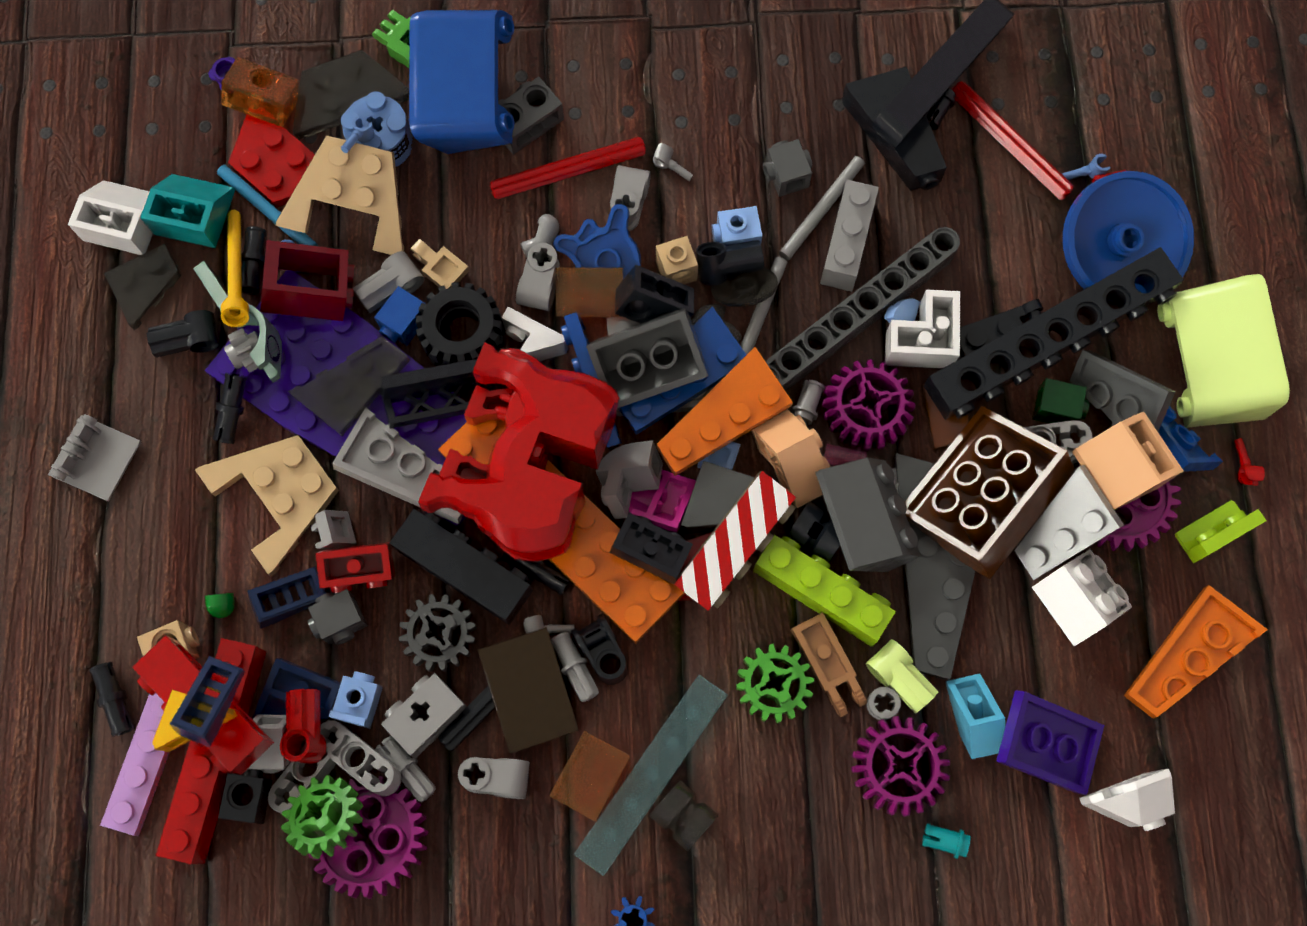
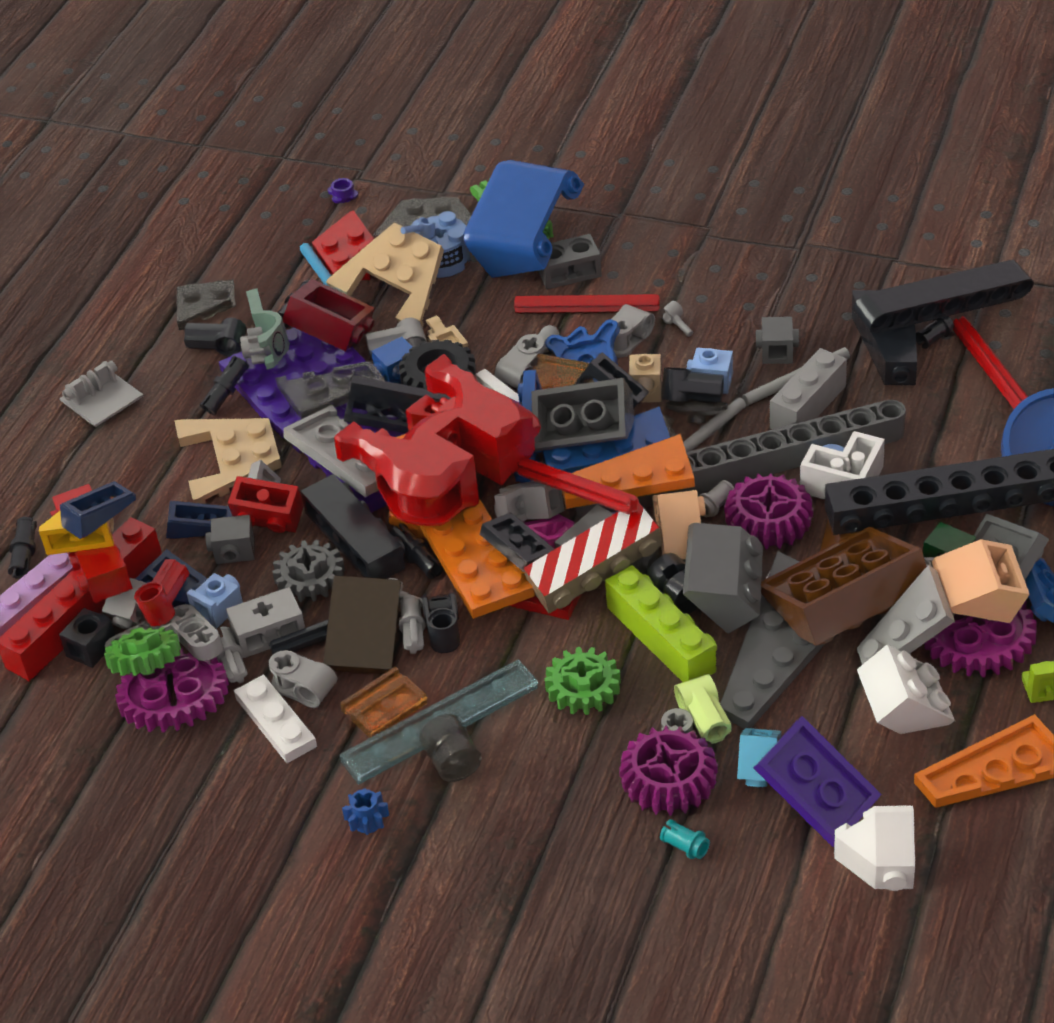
camera: 25 degrees right, 30 degrees down
(111, 217) = (204, 254): white slope -> none
(187, 209) = (261, 261): teal slope -> none
(220, 604) = (144, 508): green hinge -> none
(234, 308) = (263, 307): yellow piece -> none
(260, 91) = (360, 200): clear orange brick -> none
(486, 828) = (275, 718): none -> white plate
(689, 464) = (578, 486): none -> red axle
(828, 661) = (640, 679): medium nougat hinge -> none

